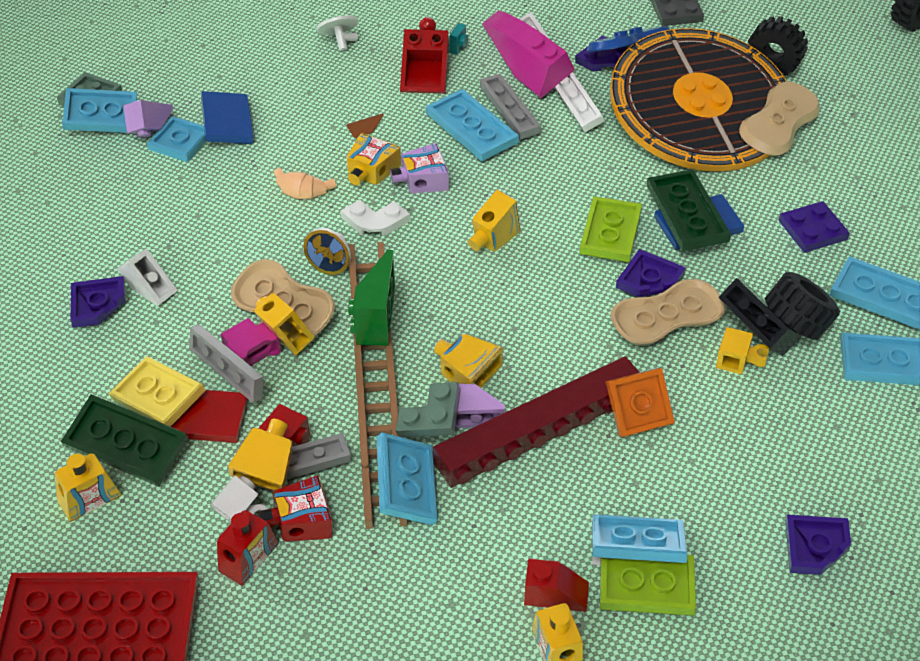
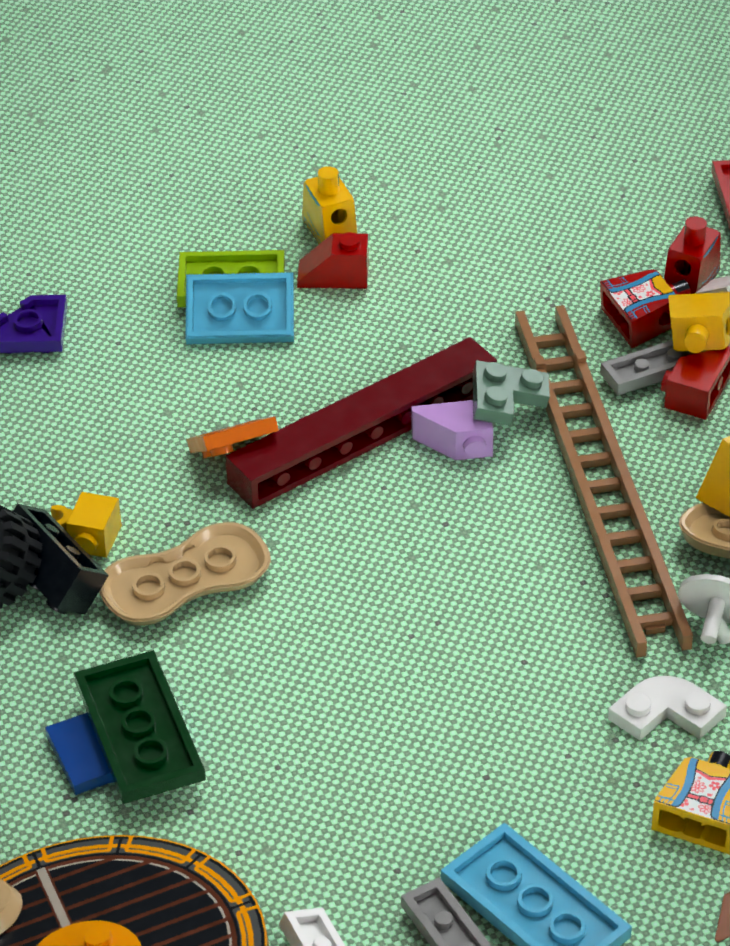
camera: 175 degrees right, 5 degrees down
(374, 304) = (614, 490): green slope -> none
(406, 479) = (525, 332): medium azure tile -> none
(422, 170) = (604, 787): lavender torso -> none
(469, 360) = (469, 483): yellow torso -> none
(495, 222) = (457, 678): yellow torso -> none
(610, 229) = (268, 706): lime plate -> none
(649, 275) = (208, 634): dark purple plate -> none

